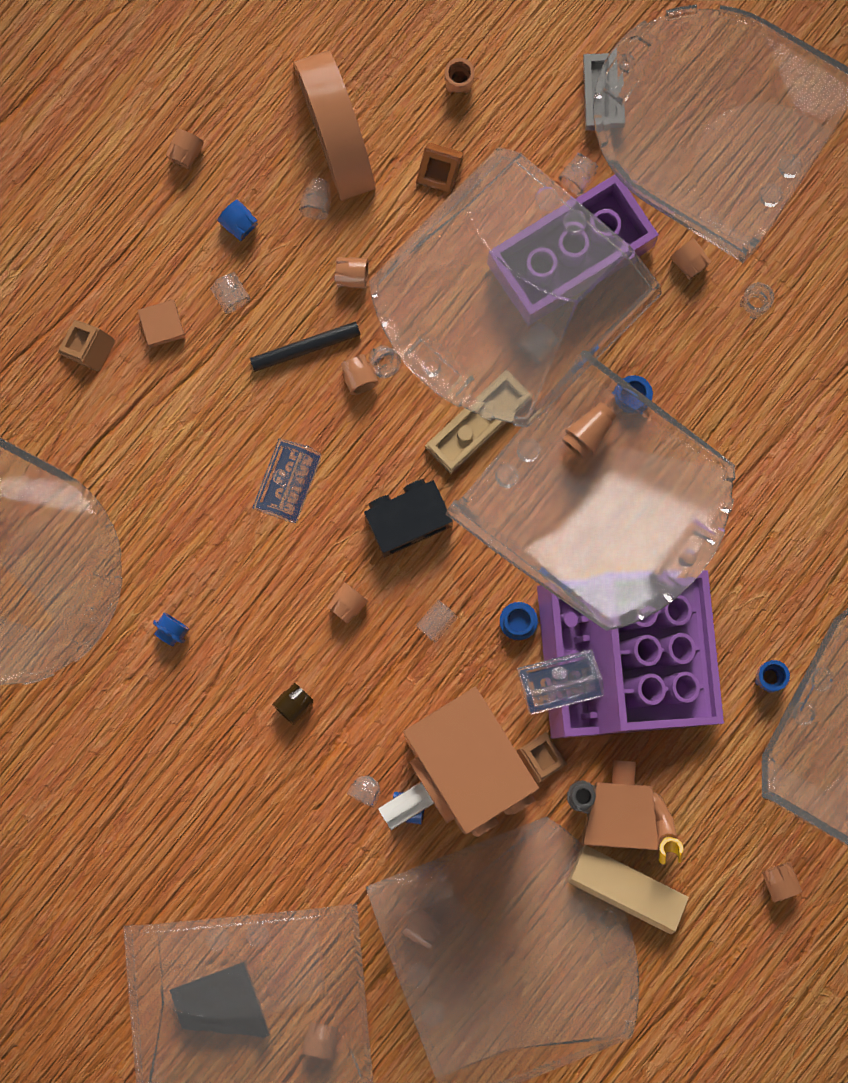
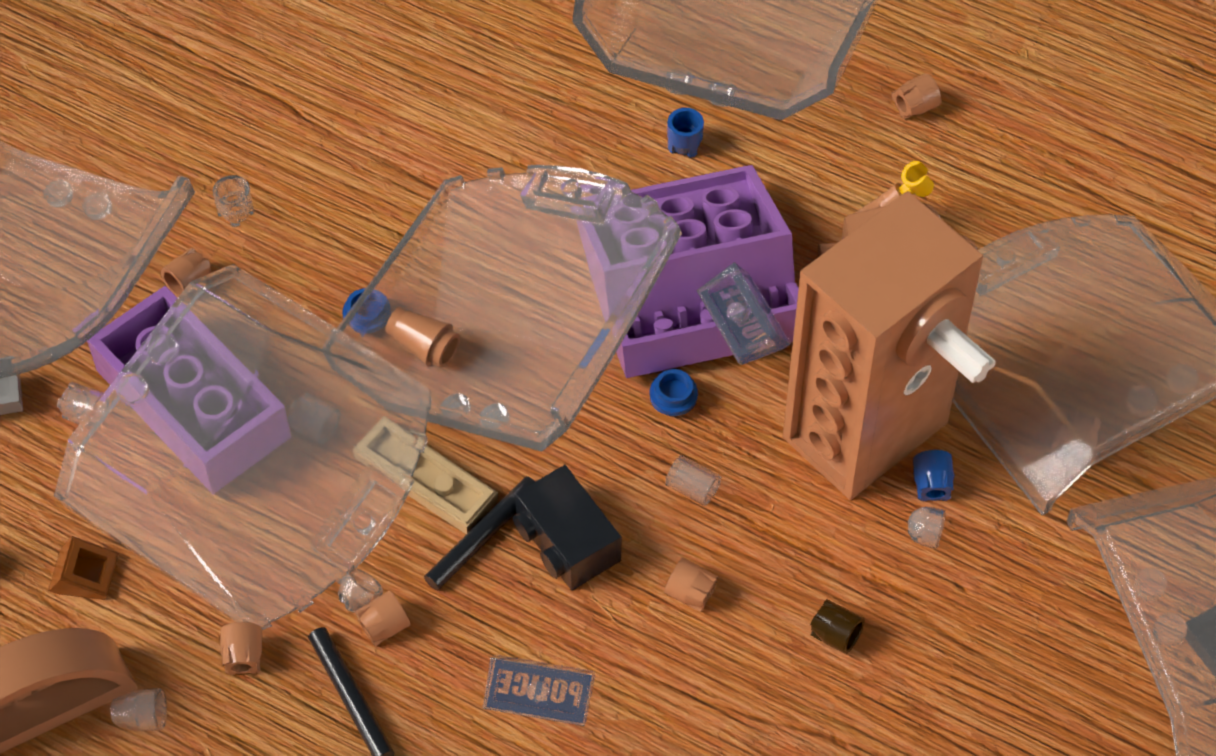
camera: 100 degrees left, 25 degrees down
(420, 456) = (475, 538): none -> black bar
(628, 889) = (977, 213): tan tile -> none

